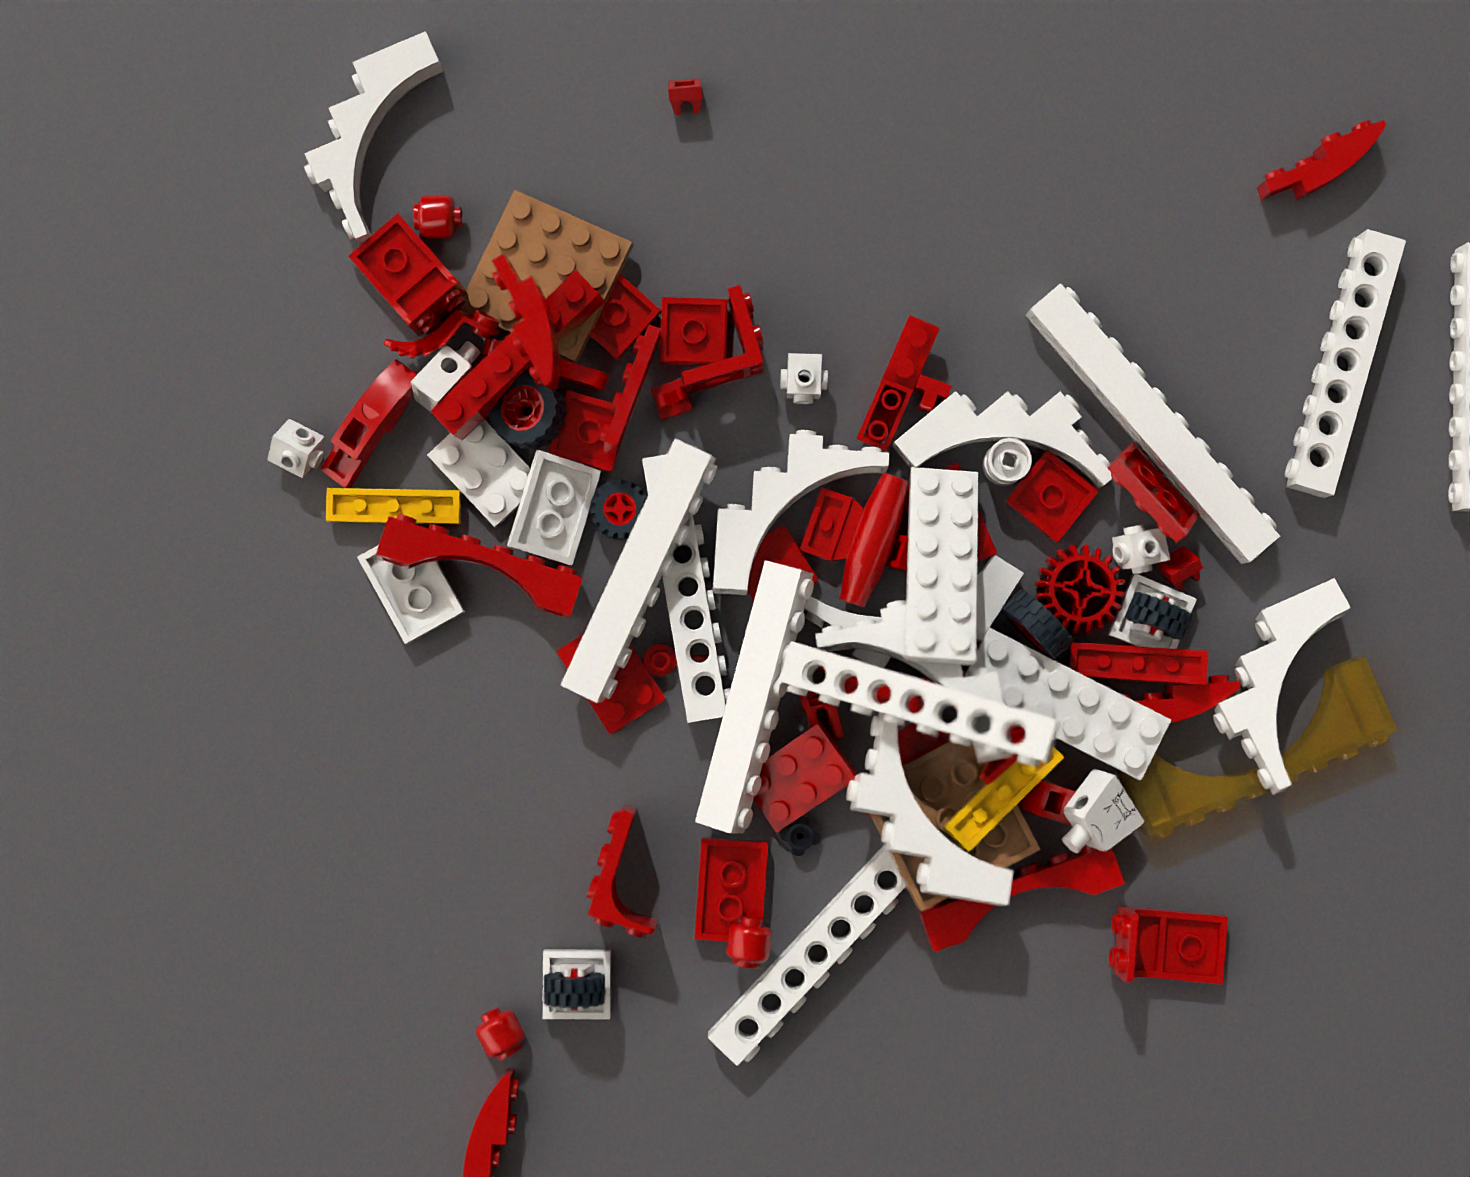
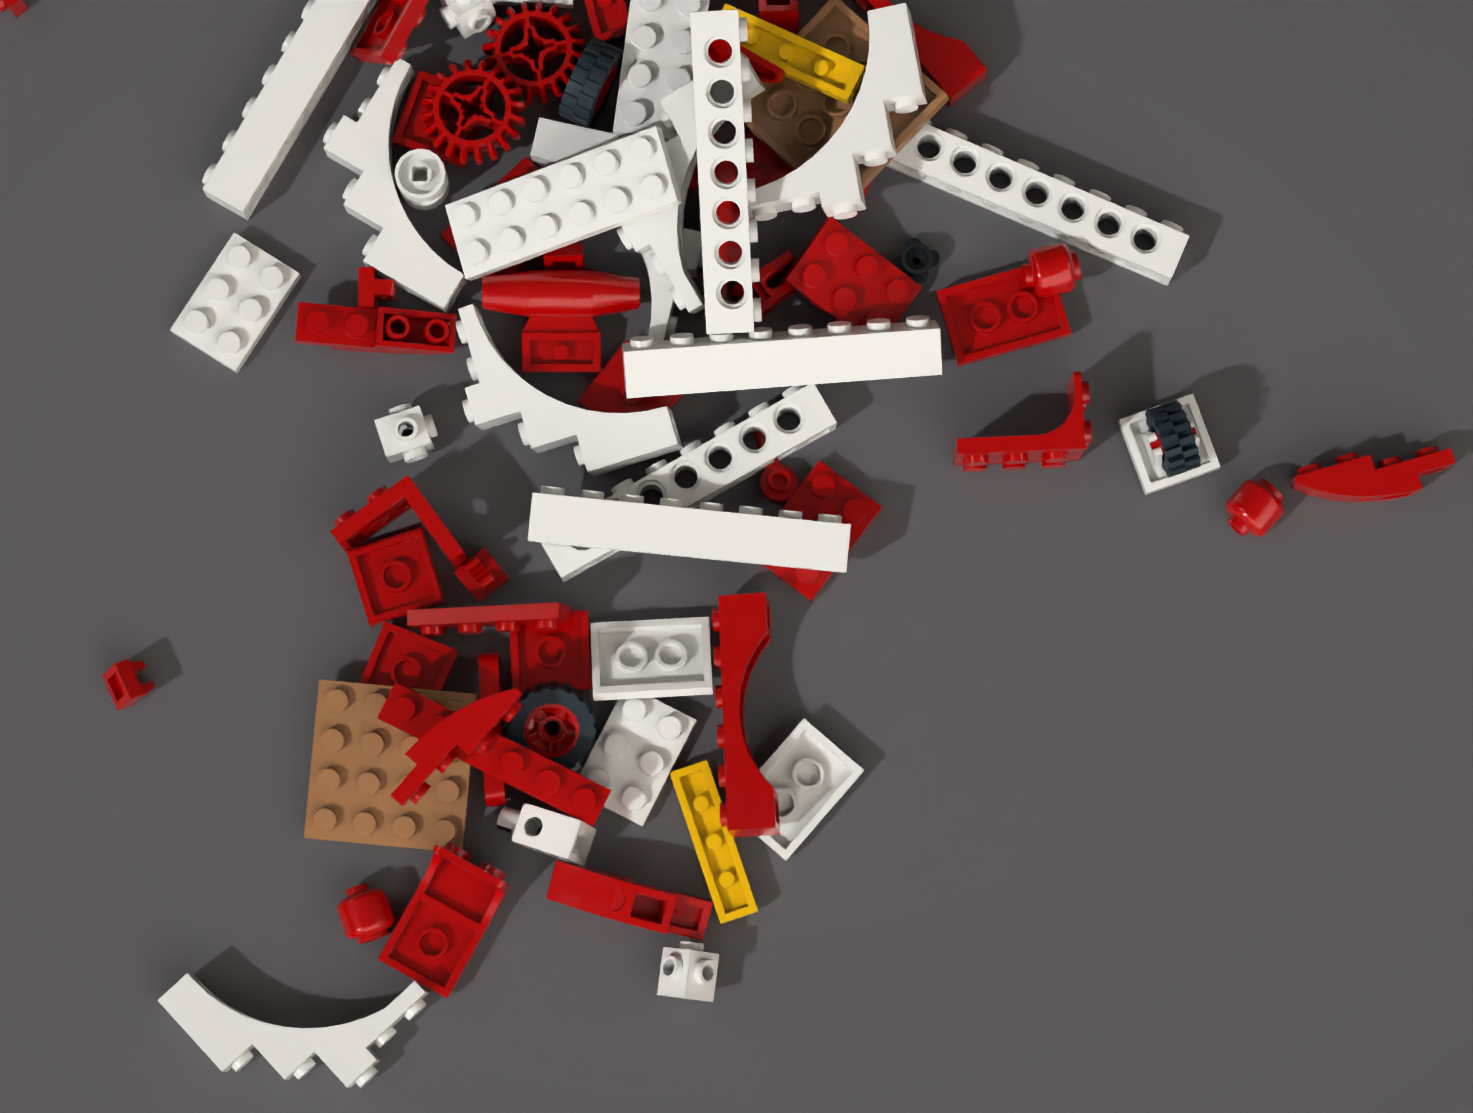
camera: 110 degrees left, 5 degrees down
(482, 325) = (499, 848): red plant -> none
(618, 498) = (620, 573): black wheel -> none
(960, 281) = (235, 302): none -> white plate
(1057, 533) = (460, 103): none -> red gear

